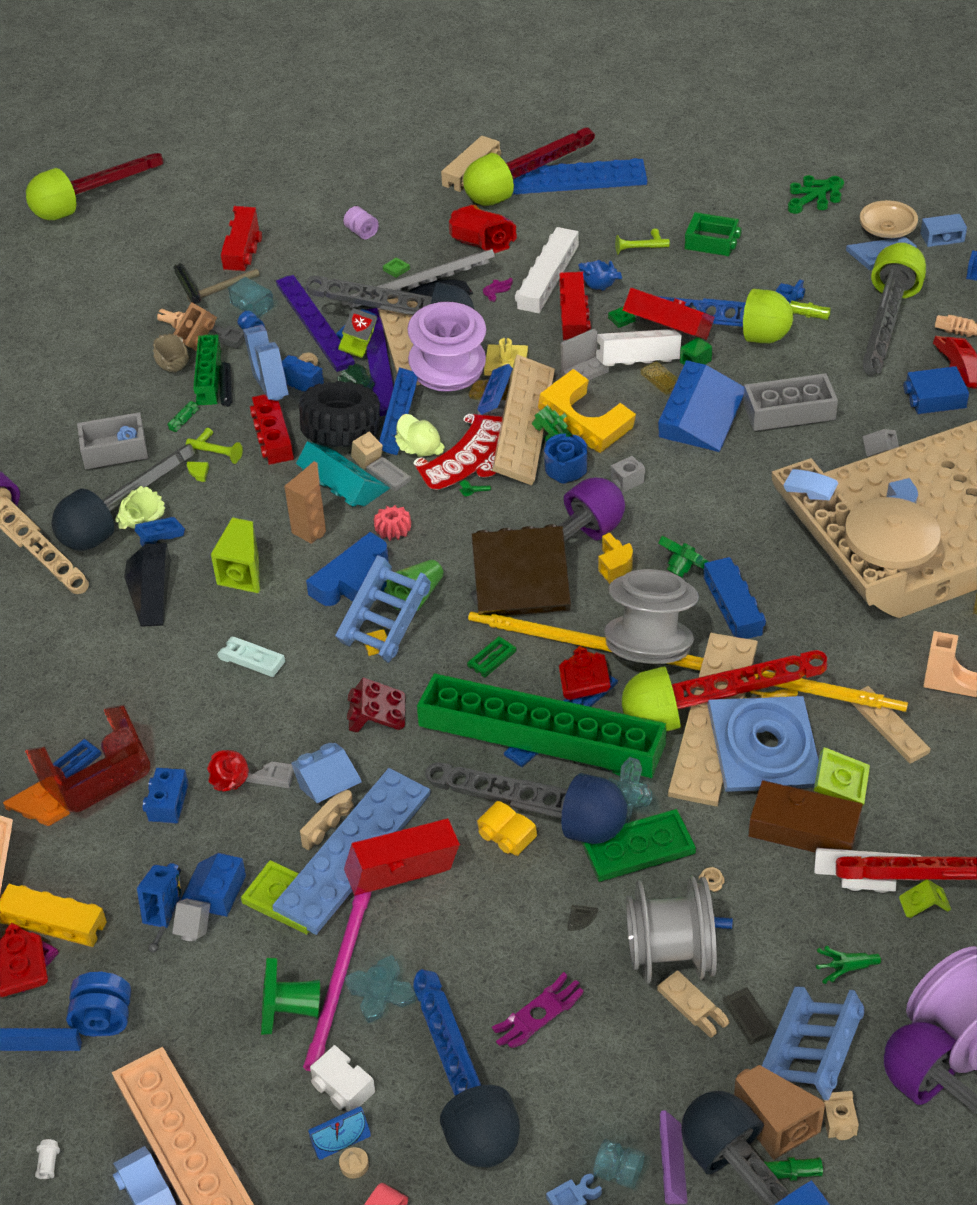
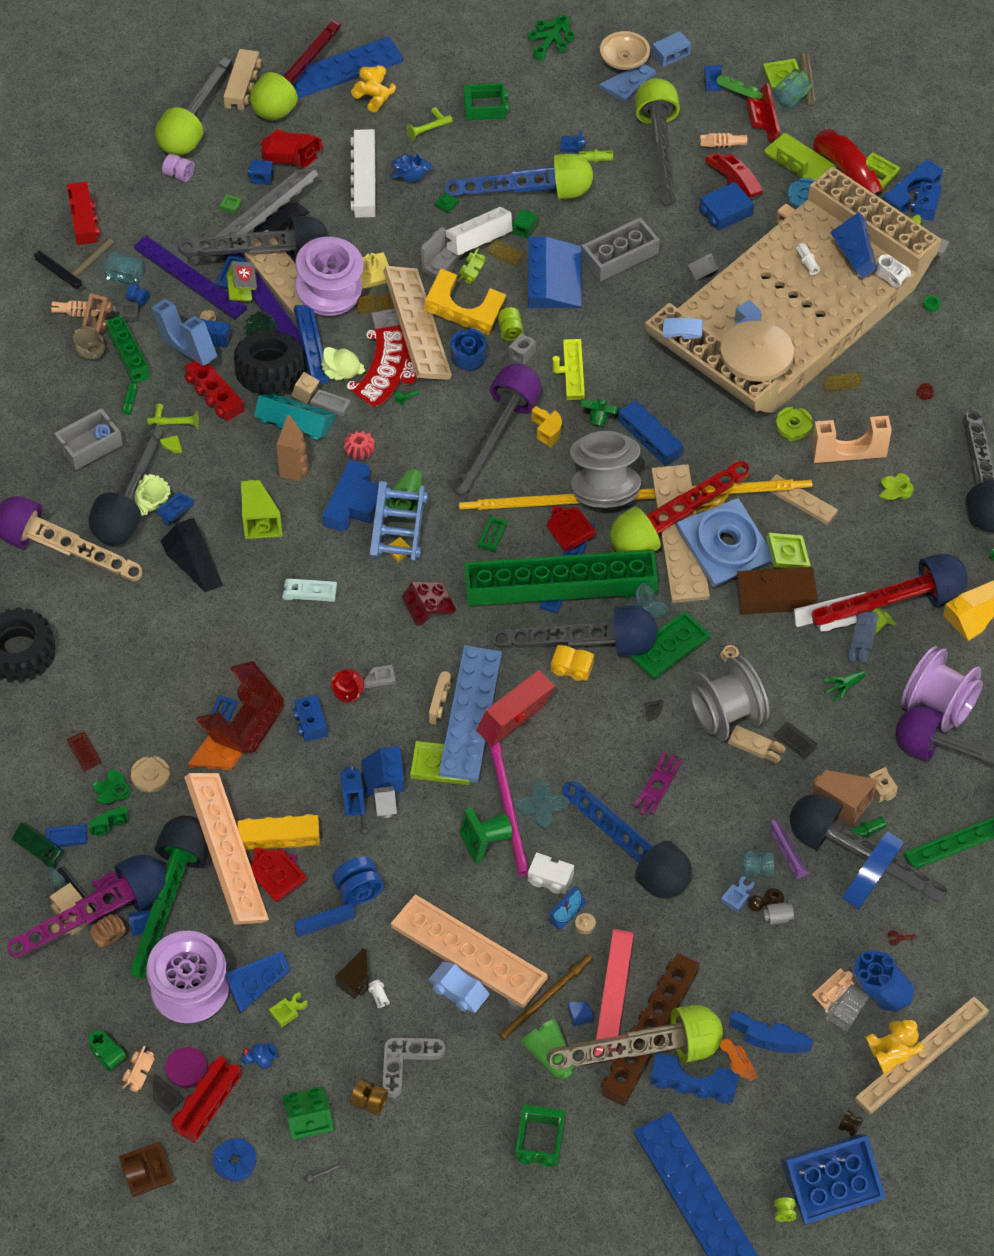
camera: 25 degrees left, 10 degrees up
(32, 1122) = (354, 976): none -> dark brown slope
(226, 384) = (152, 364): black axle -> none
(325, 772) = (422, 664): medium blue slope -> none
(379, 187) = (180, 128): none -> lime piece
(442, 245) = (261, 172): none -> blue brick
(495, 389) = (381, 302): blue tile -> none
(497, 287) = (327, 201): magenta piece -> none
(521, 571) = (487, 458): dark brown panel -> none
(551, 422) = (445, 321): green hips -> none
(573, 305) = (406, 206): red wedge -> none
(599, 195) = (371, 85): none -> yellow animal
(621, 376) = (467, 271): none -> lime hinge
(626, 443) = (510, 323): none -> lime wheel
(668, 313) = (490, 193): red brick -> none
(675, 509) = (572, 368): none -> neon yellow plate
(793, 1028) = (830, 739): medium blue fence -> none
(895, 912) = (863, 636): none -> sand blue hinge
(911, 645) = (794, 432): none -> lime plate

